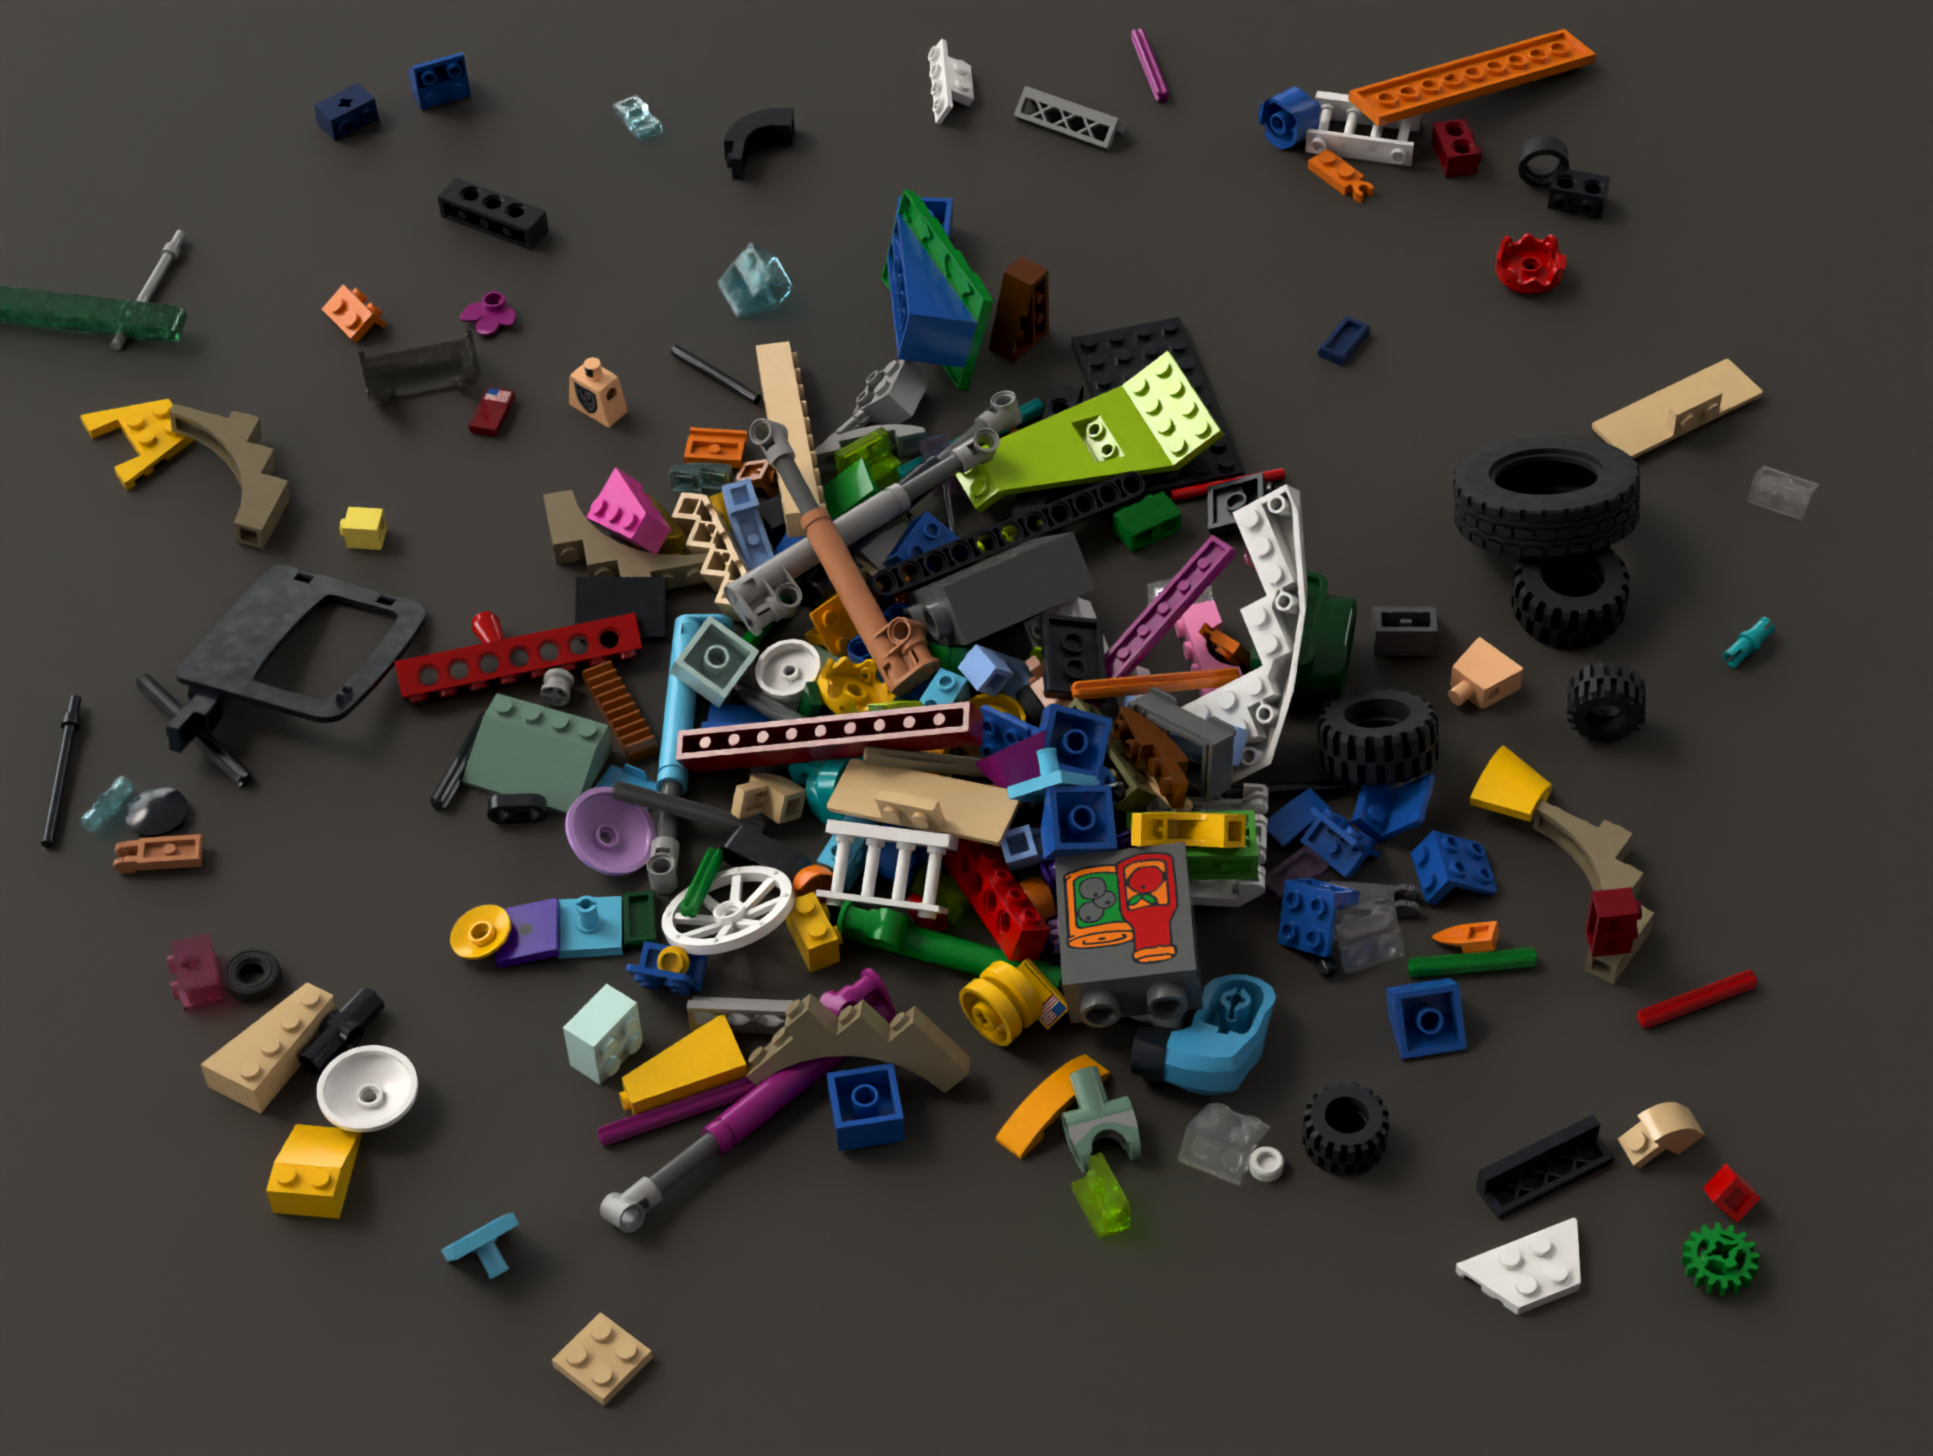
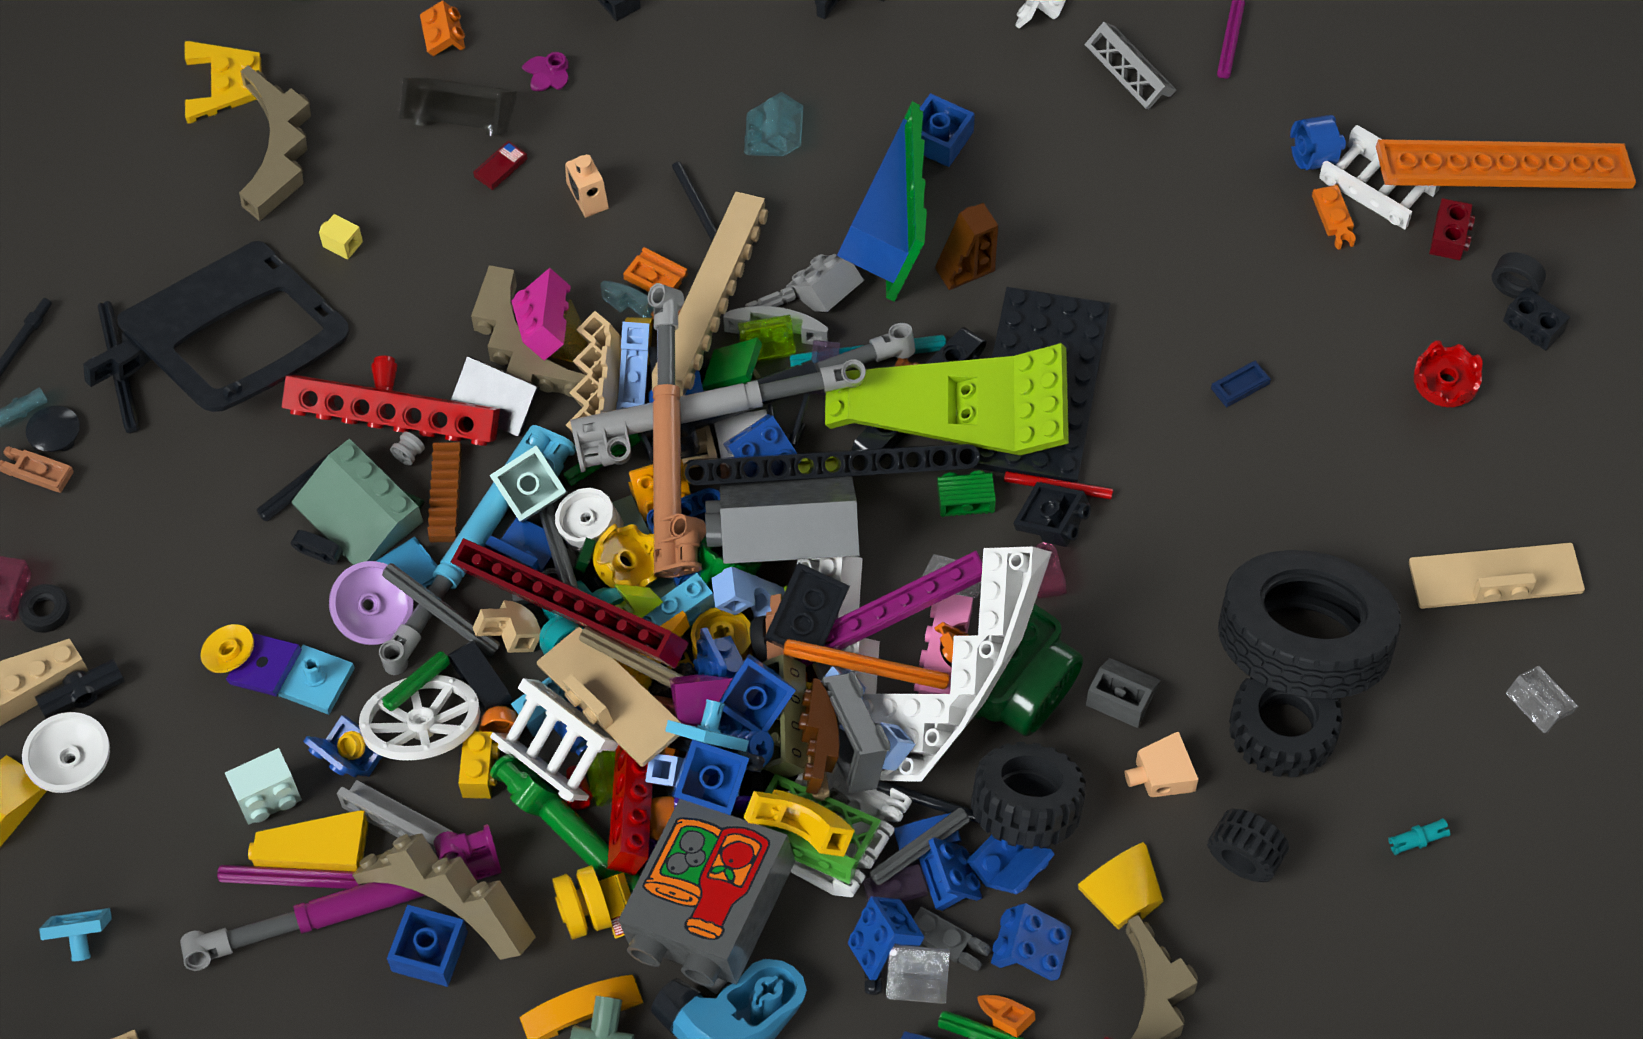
camera: 25 degrees right, 10 degrees up
(639, 919) = (357, 690): dark green tile -> none
(1299, 826) = (918, 846): none -> dark grey axle

